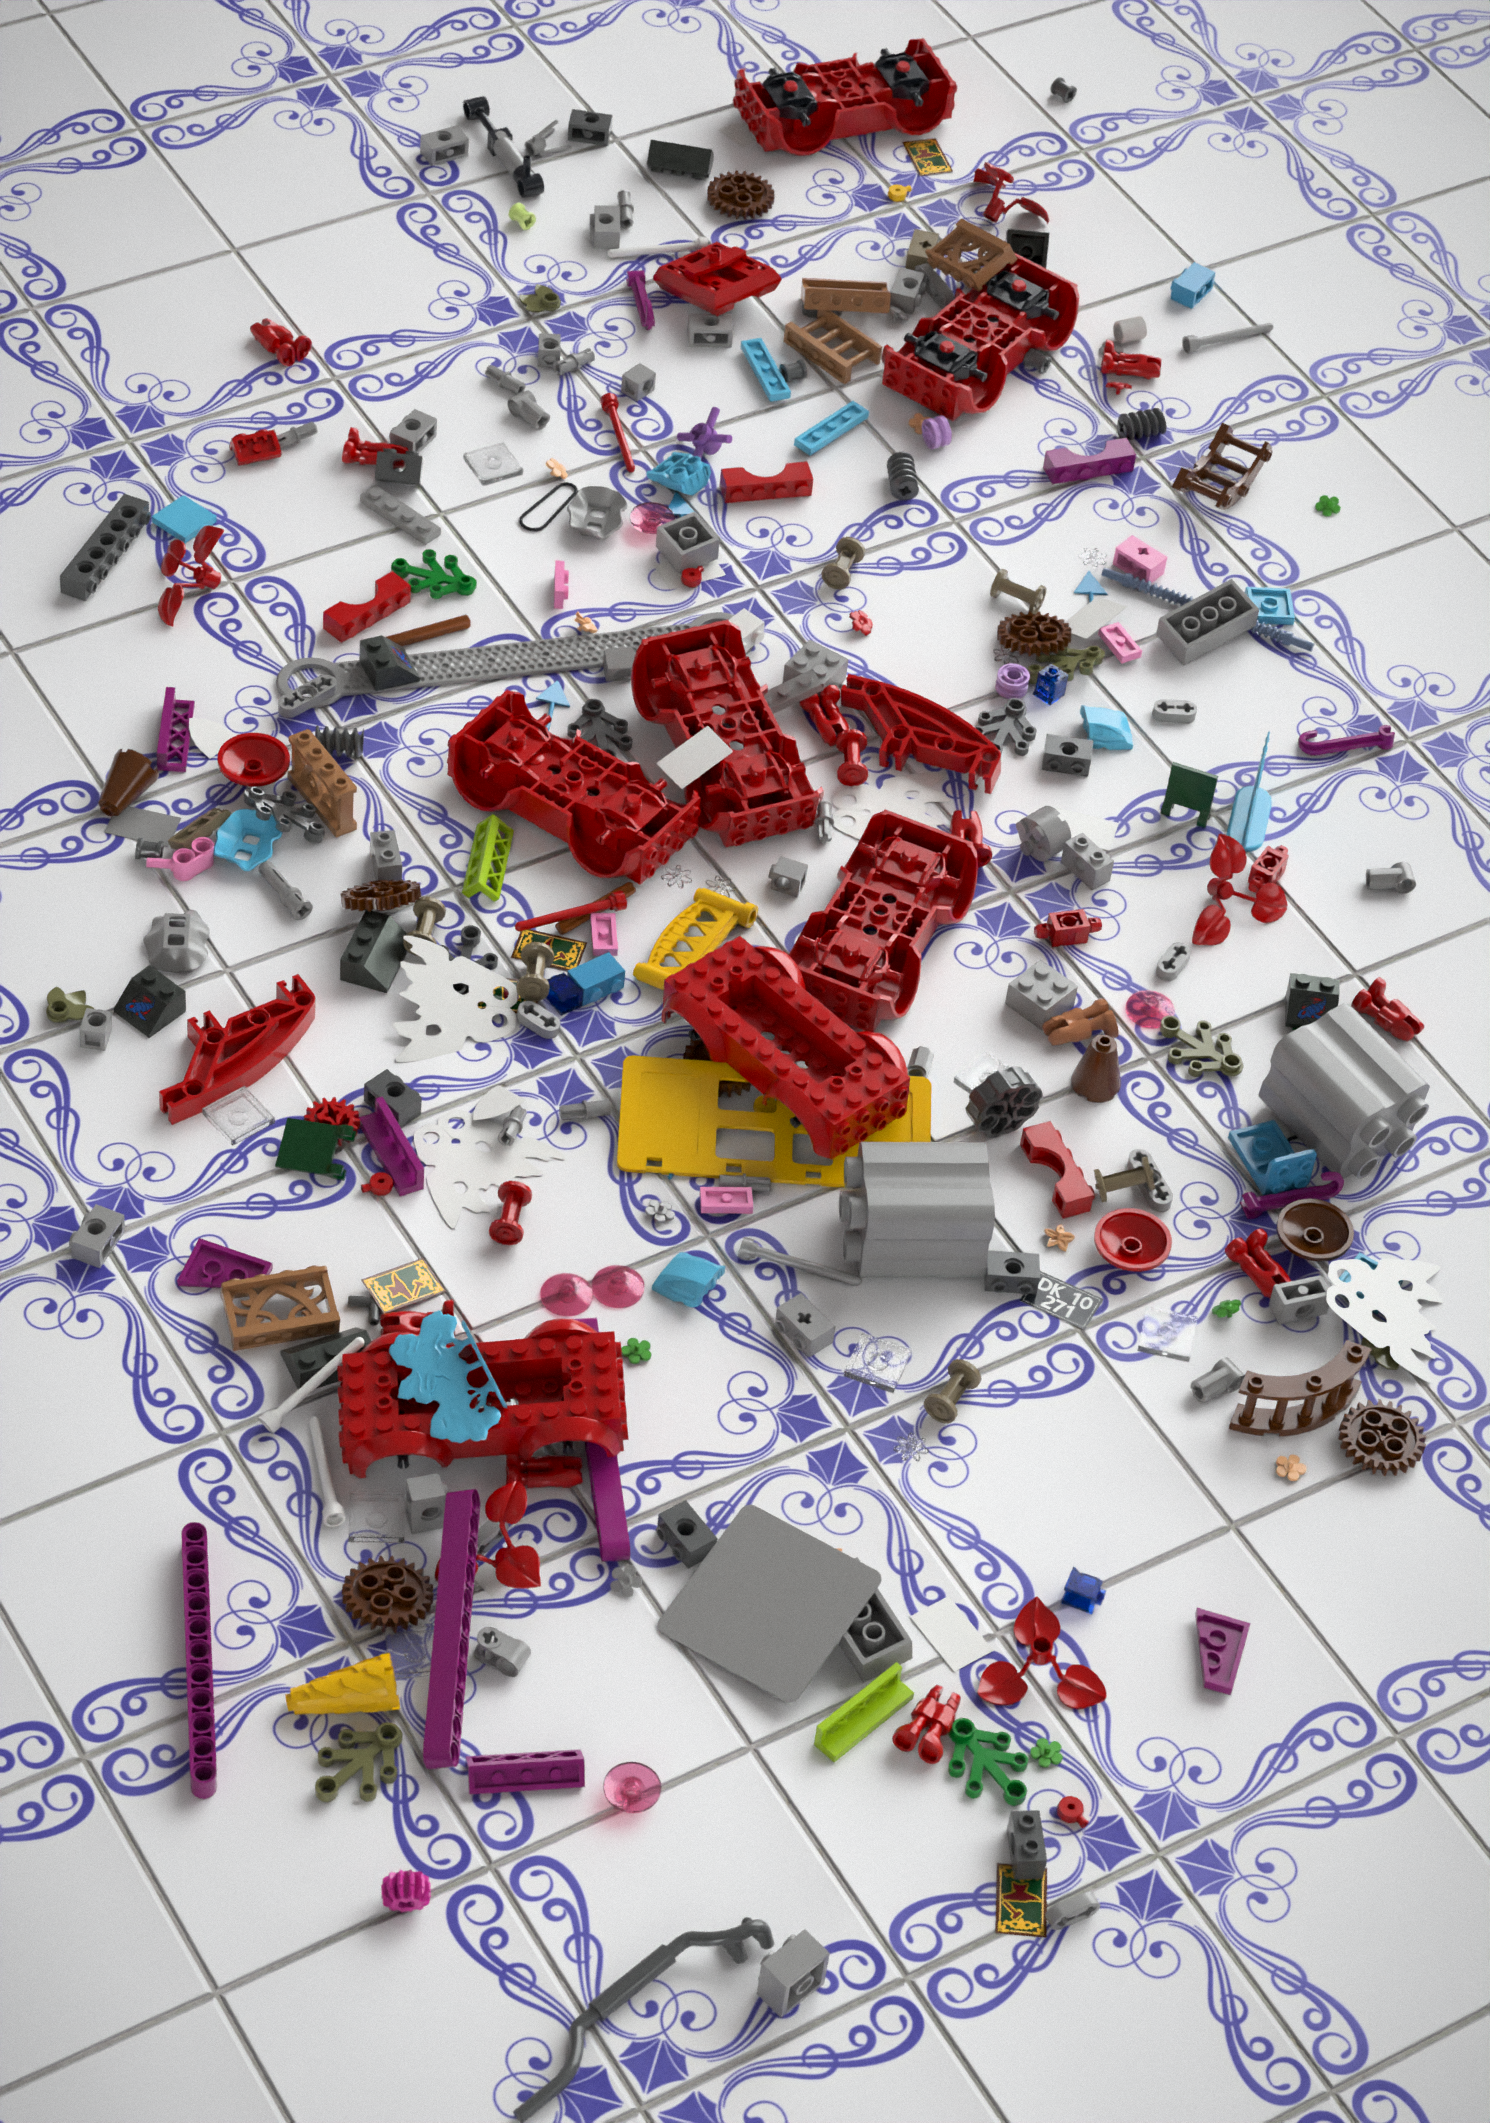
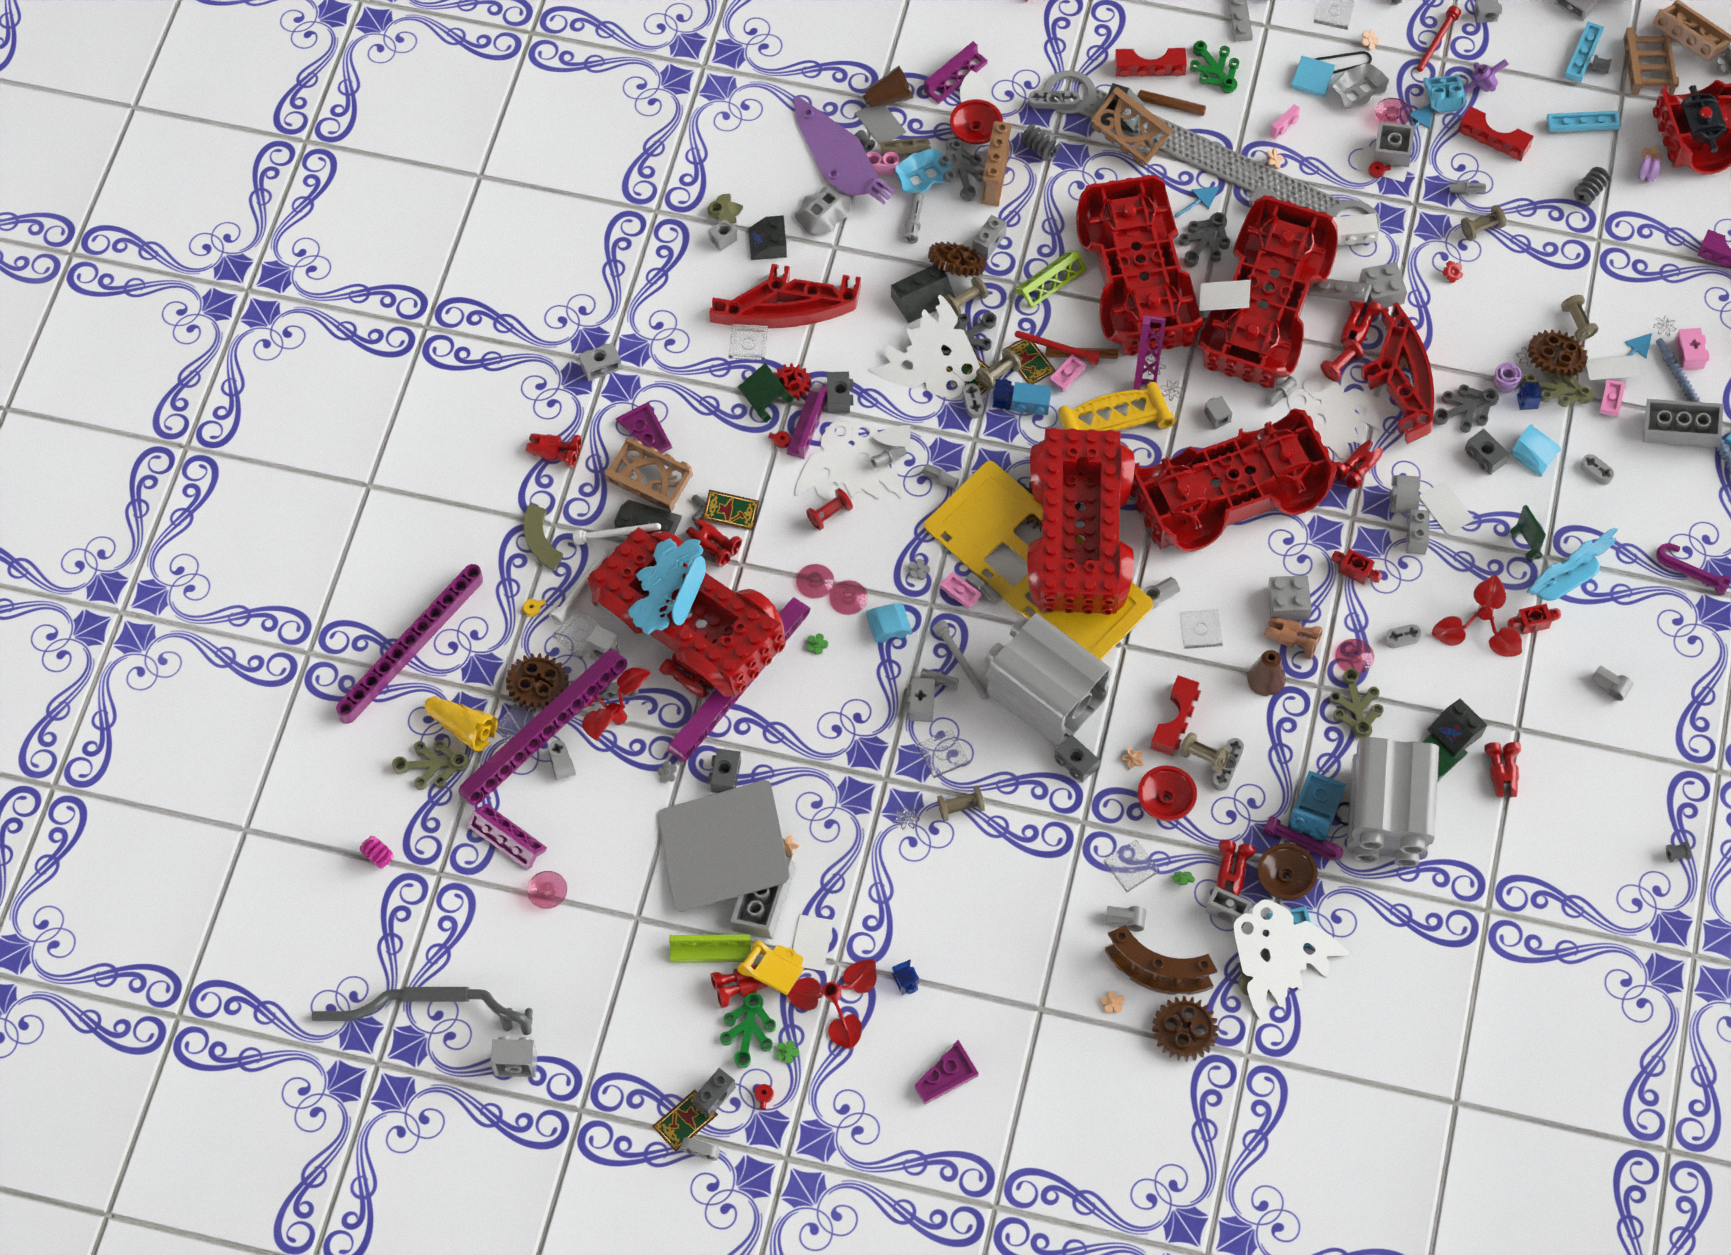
camera: 50 degrees right, 15 degrees up
(135, 1355) = (549, 445): none -> red piece
(138, 876) = (839, 154): none -> medium lavender wing
(221, 1458) = (536, 539): none -> olive tile
(294, 1527) = (532, 607): none -> yellow piece
(408, 683) = (1124, 102): none -> medium nougat fence
(539, 530) = (1313, 76): none -> medium azure tile
(671, 854) = (1142, 354): none -> magenta fence
(791, 543) = (1466, 187): none -> light grey axle
(808, 1290) = (940, 678): none -> light grey axle
(951, 1676) = (777, 969): none -> yellow piece
(1003, 1101) = (1179, 650): dark grey connector -> none
(1063, 1301) = (1093, 798): sticker -> none

